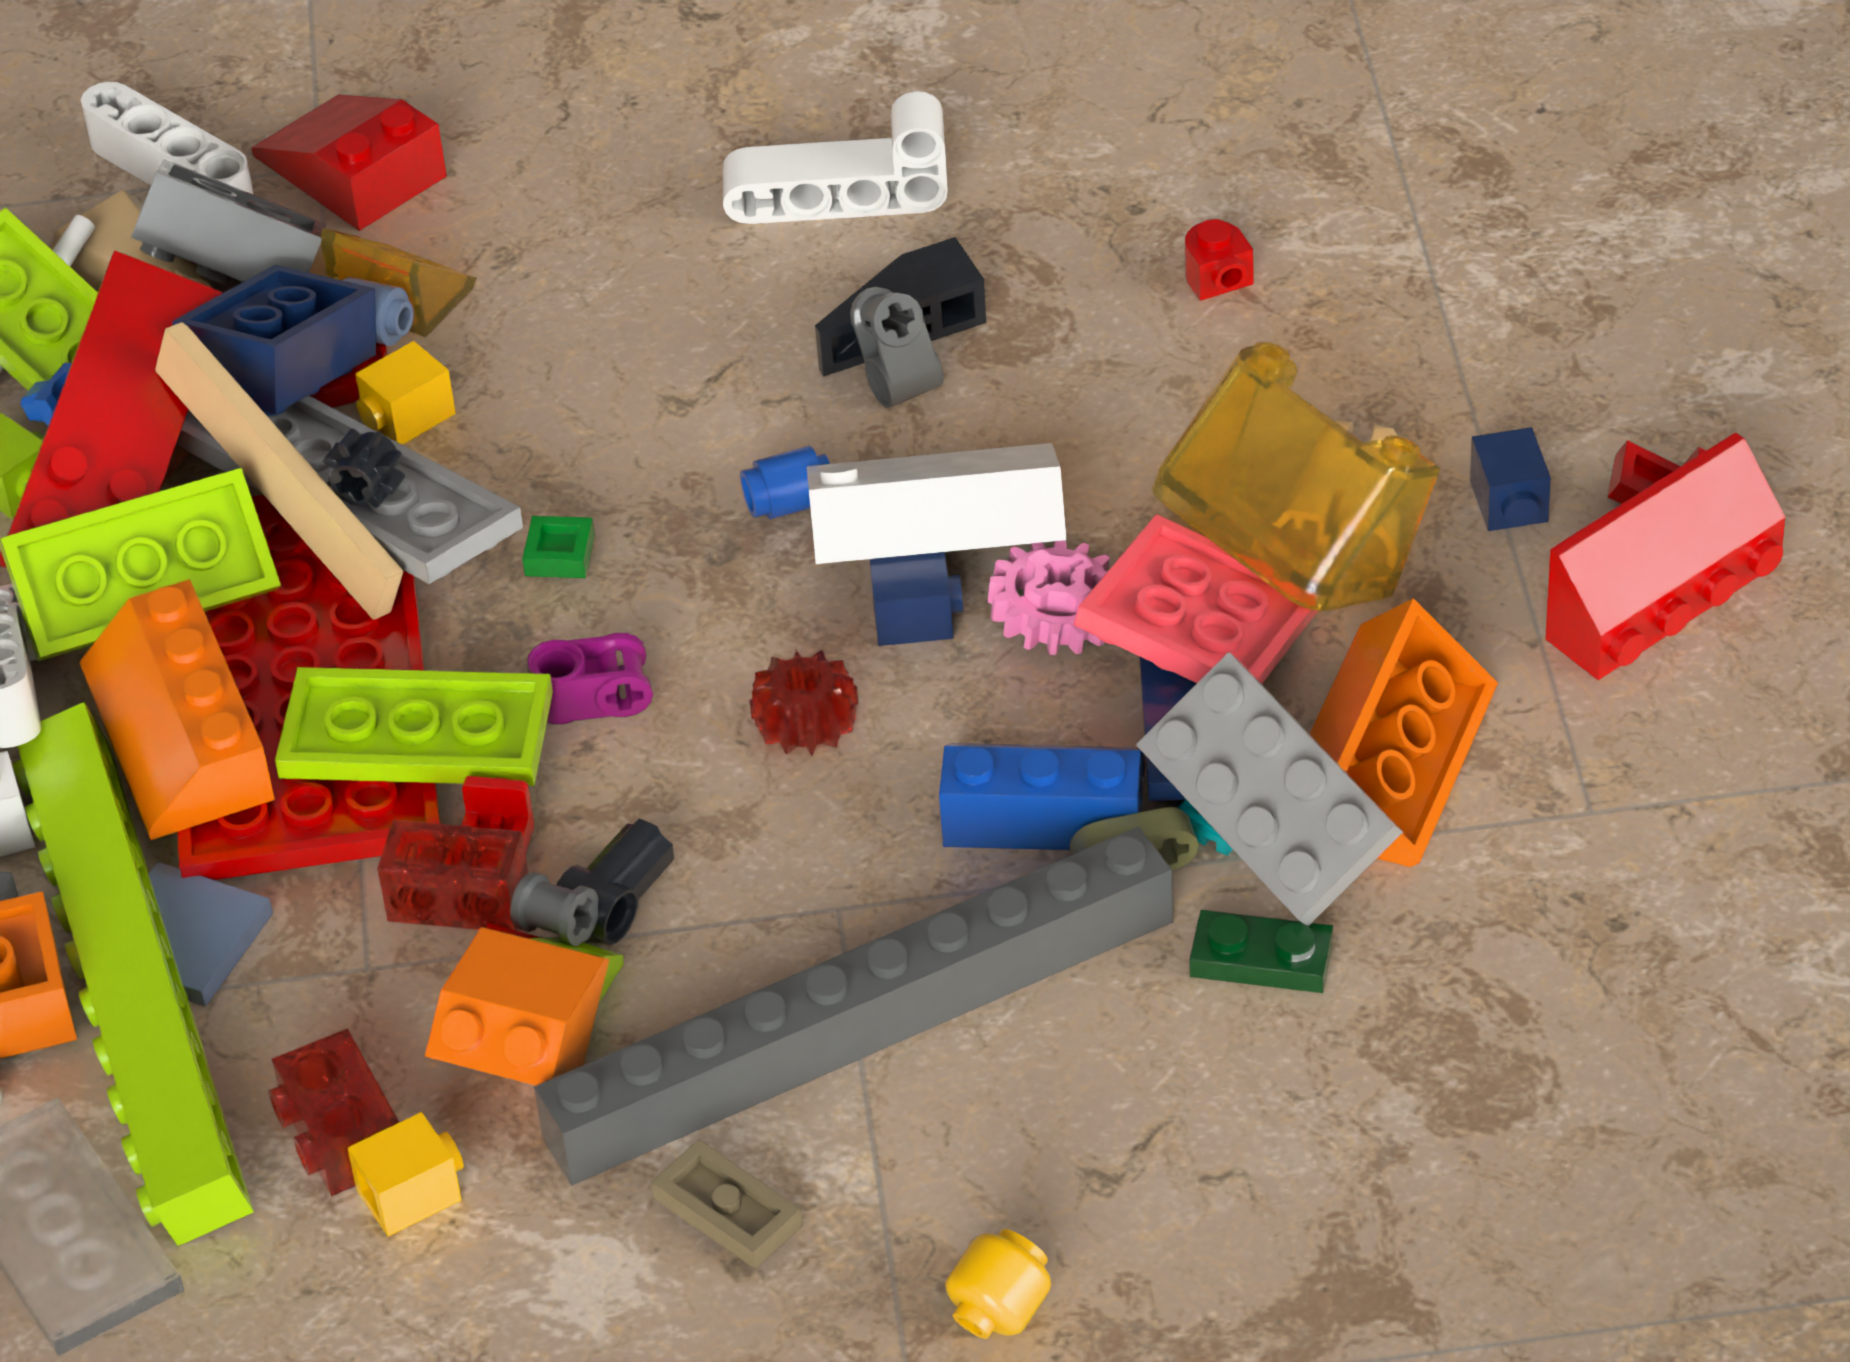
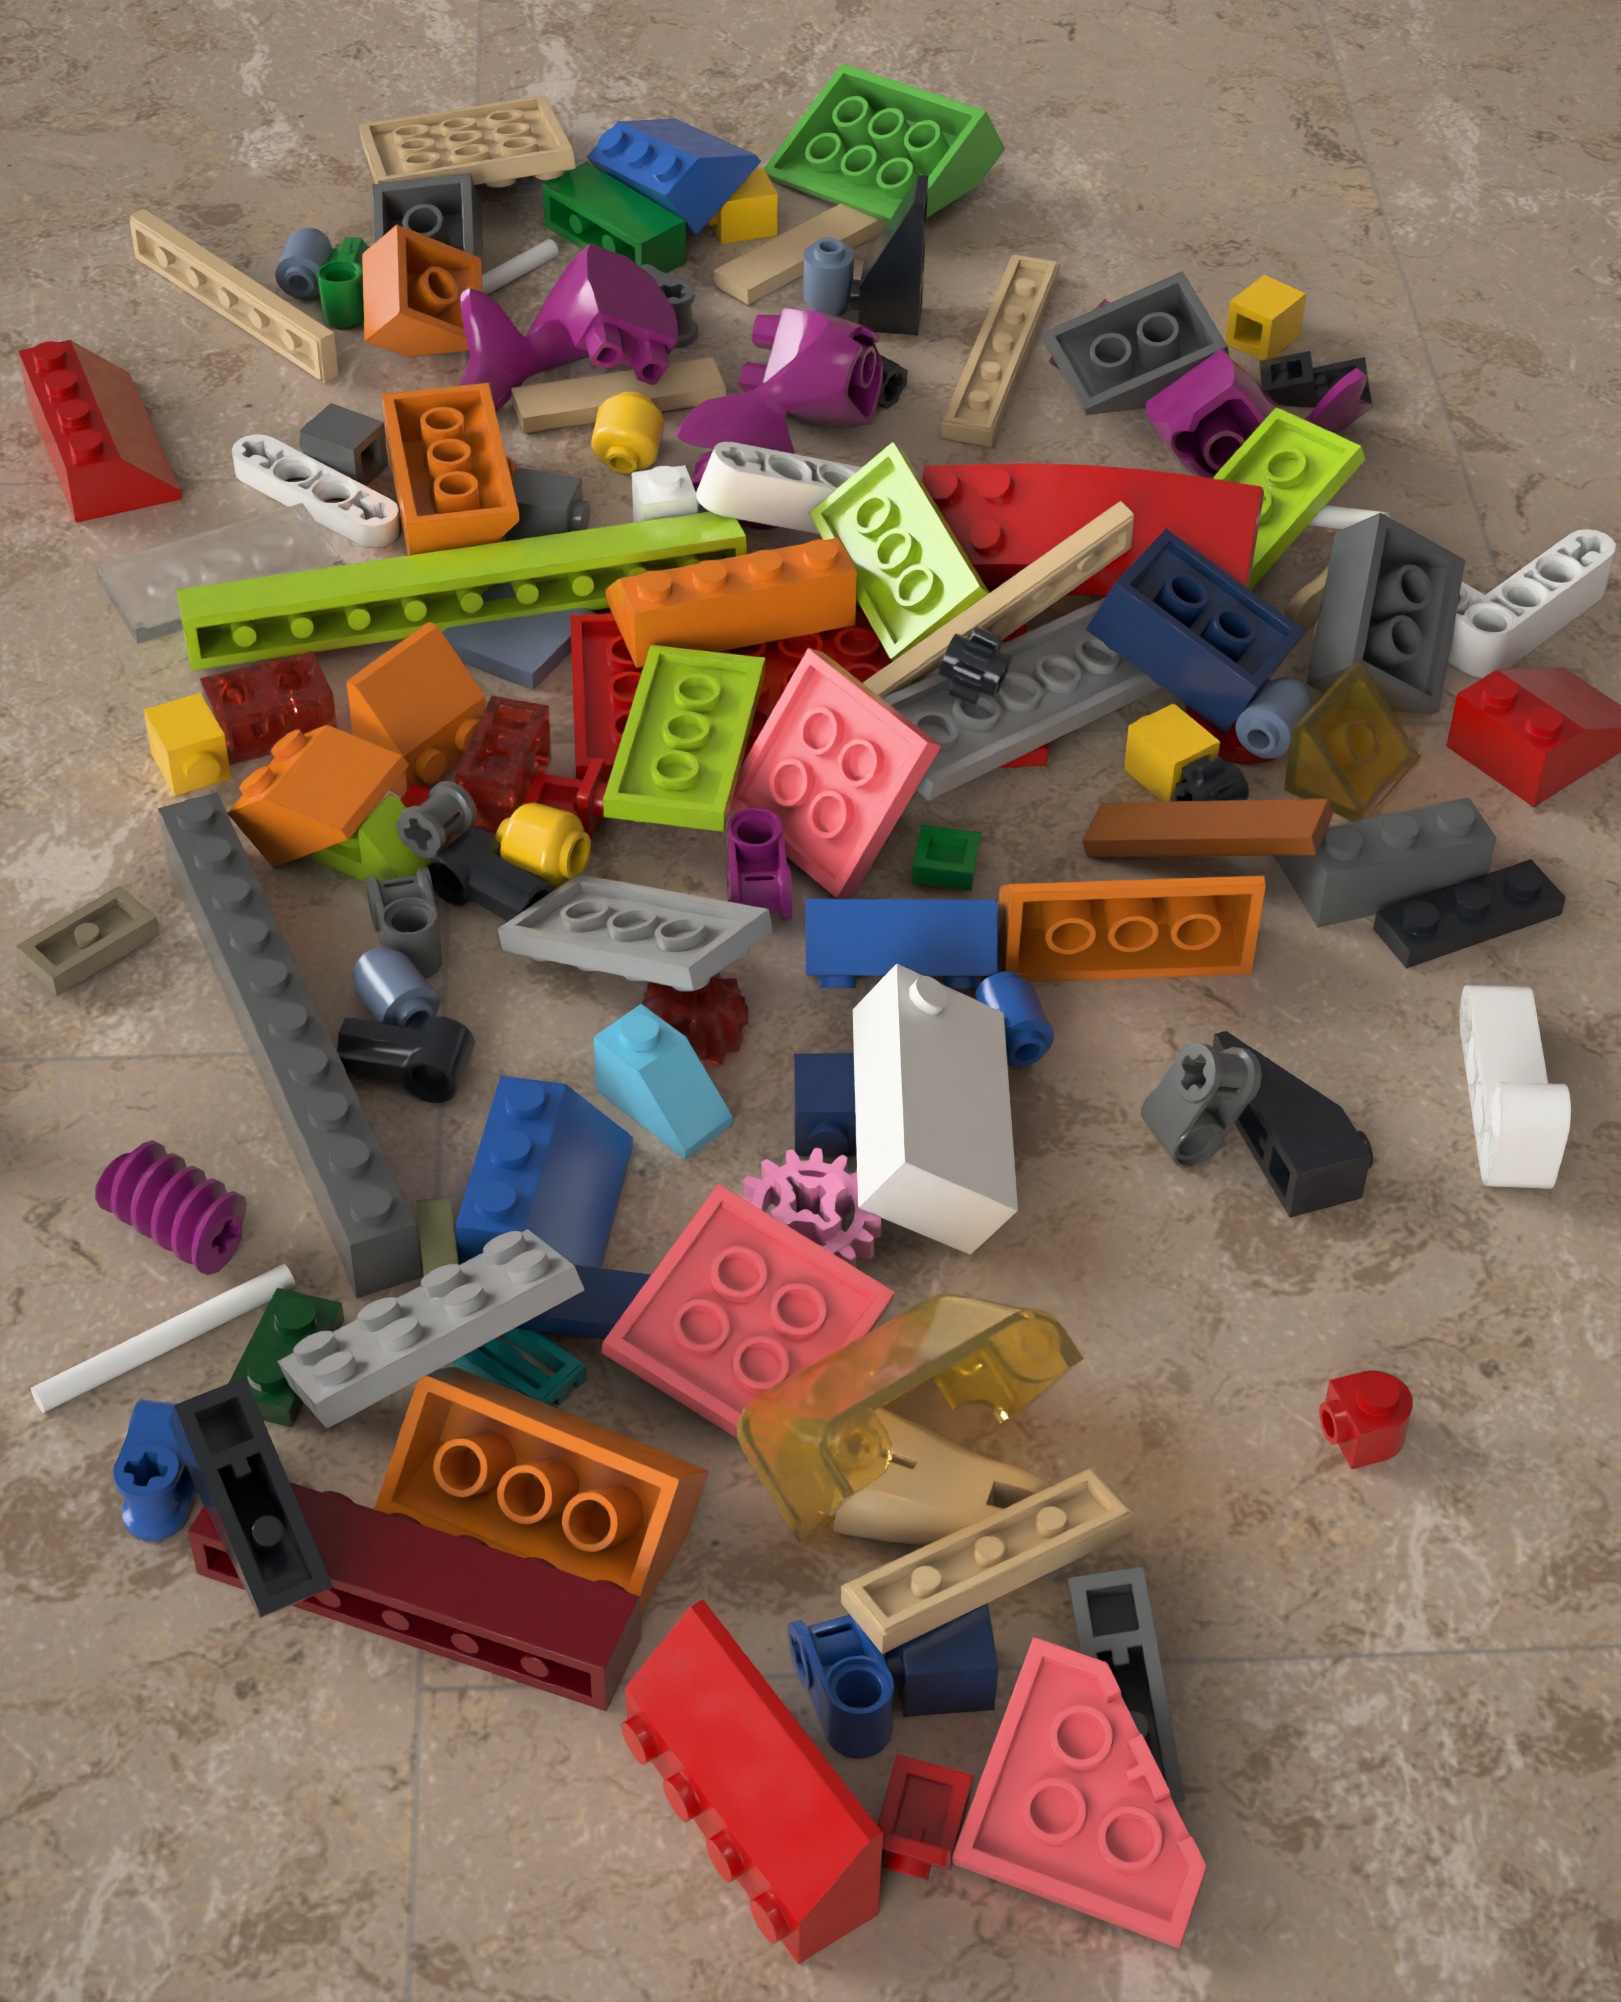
camera: 90 degrees right, 0 degrees up
(372, 963) = (417, 705): none -> orange slope
(471, 359) = (1211, 782): none -> black gear
(488, 582) = (834, 772): none -> coral plate
(535, 350) = (1208, 828): none -> dark orange tile
(538, 253) = (1390, 860): none -> dark grey slope
(567, 832) = (545, 842): none -> yellow head
(605, 210) = (1468, 913): none -> black plate
(657, 404) = (1130, 928): none -> orange slope
(680, 563) = (920, 934): none -> blue slope
(684, 938) = (407, 918): none -> dark grey piece
(719, 729) = (636, 931): none -> light grey plate
(790, 929) = (394, 988): none -> sand blue brick
(875, 897) = (423, 1058): none -> black piece
(890, 722) = (659, 1081): none -> medium azure slope
(1107, 1042) = (174, 1205): none -> magenta piece
(1254, 1044) = (161, 1338): none -> white bar
(1408, 998) = (153, 1475): none -> blue piece
(1468, 457) = (986, 1560): none -> tan tile
(1475, 873) = (248, 1496): none -> black slope
(1503, 377) = (1119, 1629): none -> dark grey slope
(1505, 810) = (457, 1598): none -> dark red brick
(1532, 530) = (844, 1671): none -> blue piece
(1625, 388) = (1080, 1804): none -> coral plate

